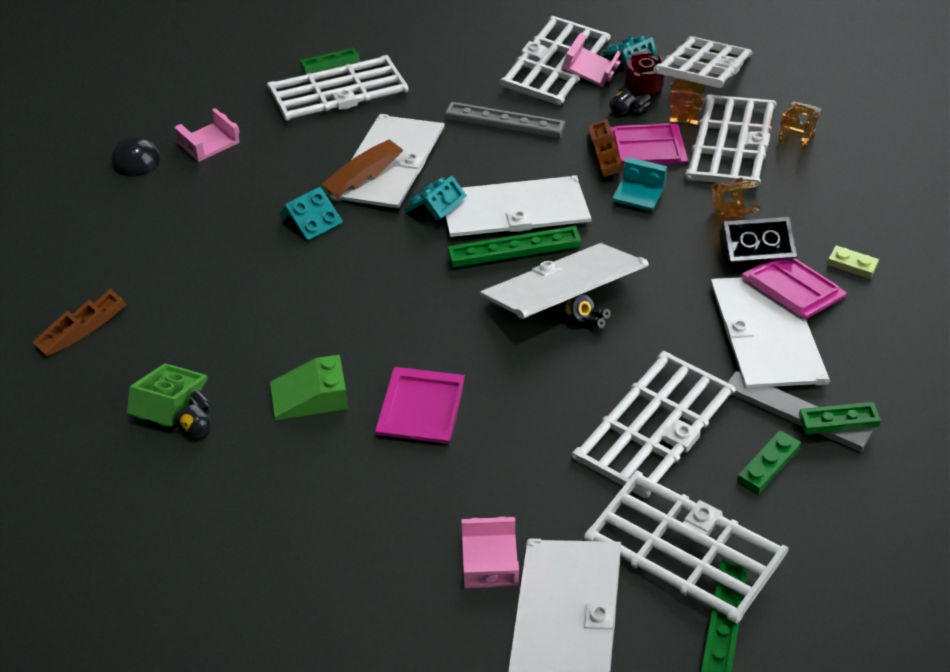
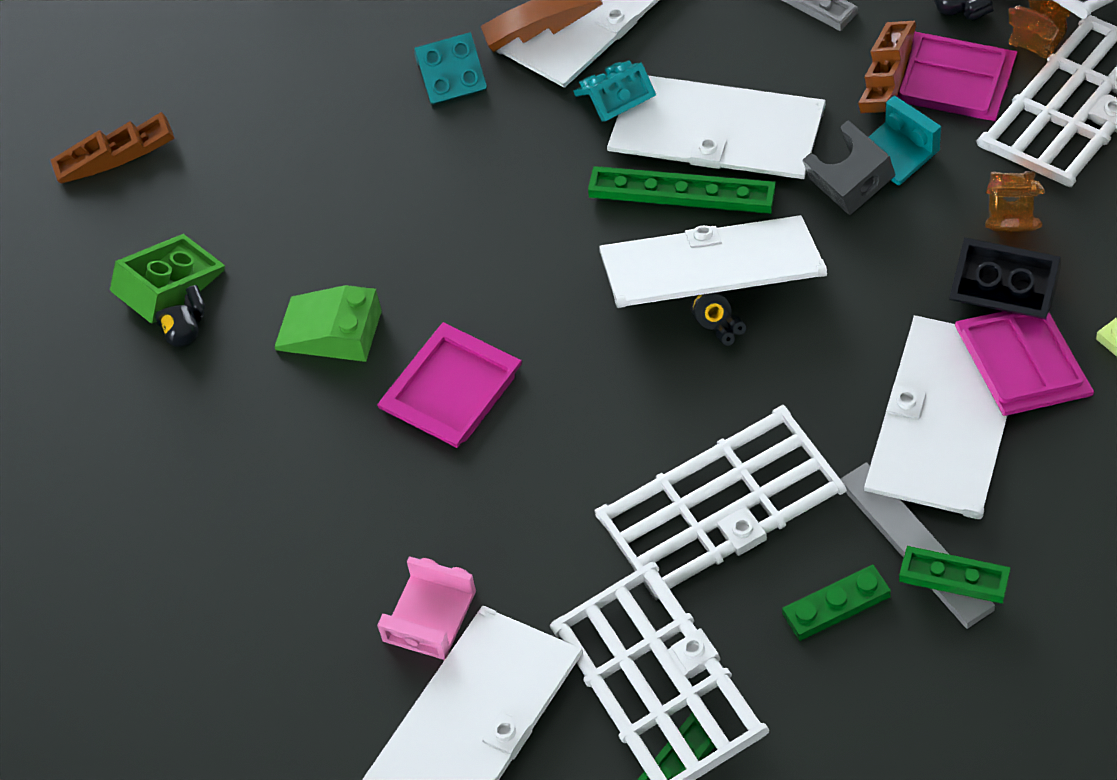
camera: 30 degrees right, 10 degrees up
(626, 211) = (856, 177): none -> dark grey piece

